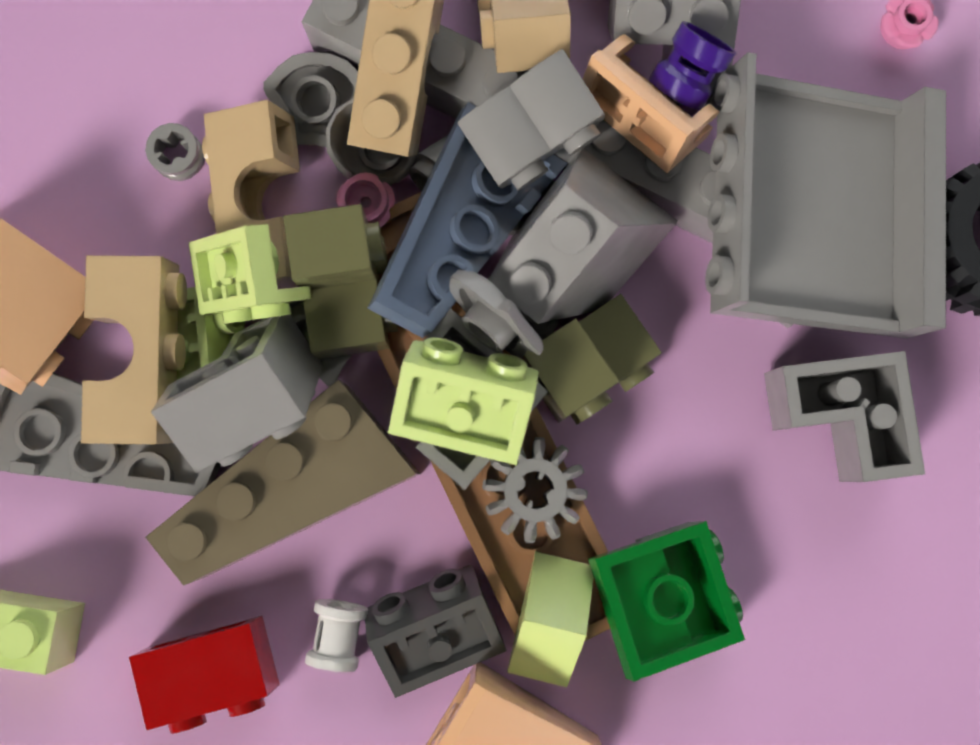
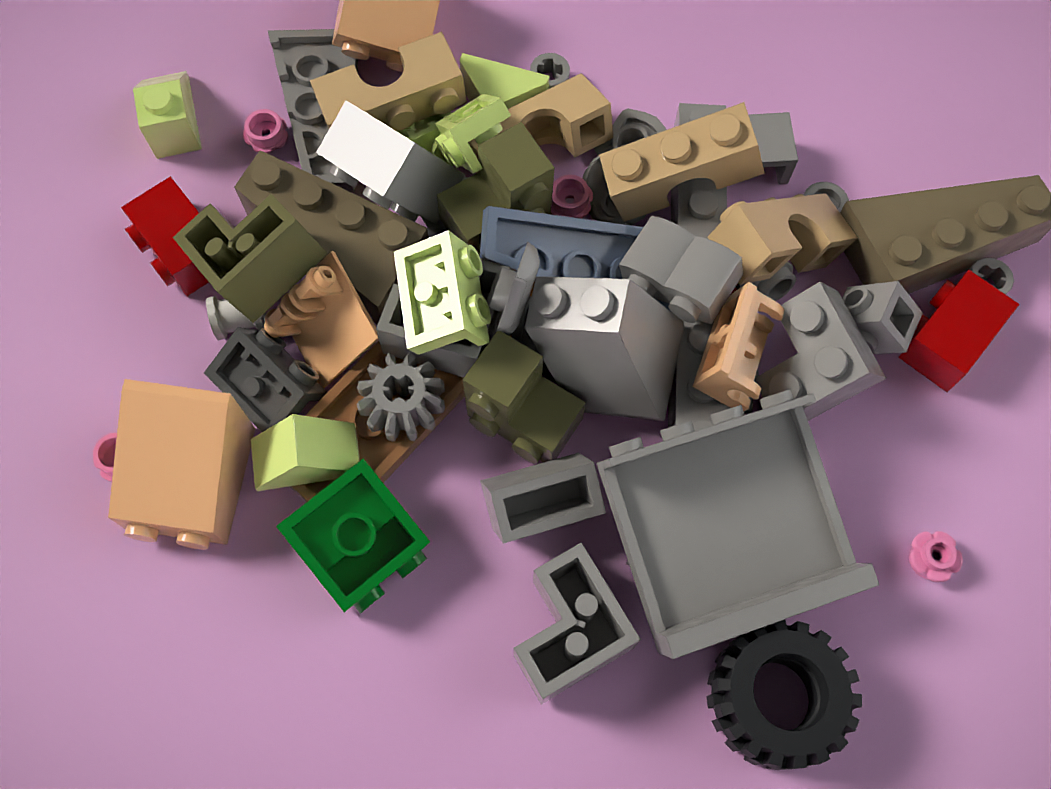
camera: 65 degrees right, 15 degrees down
(87, 513) = (263, 122): none -> bright pink plate
(171, 216) = (500, 80): none -> yellowish green slope
(307, 606) = (255, 259): none -> olive brick
(398, 539) = (324, 320): none -> light nougat hinge
(692, 65) = (784, 363): dark purple wheel -> none
(702, 383) = (543, 497): none -> light grey brick

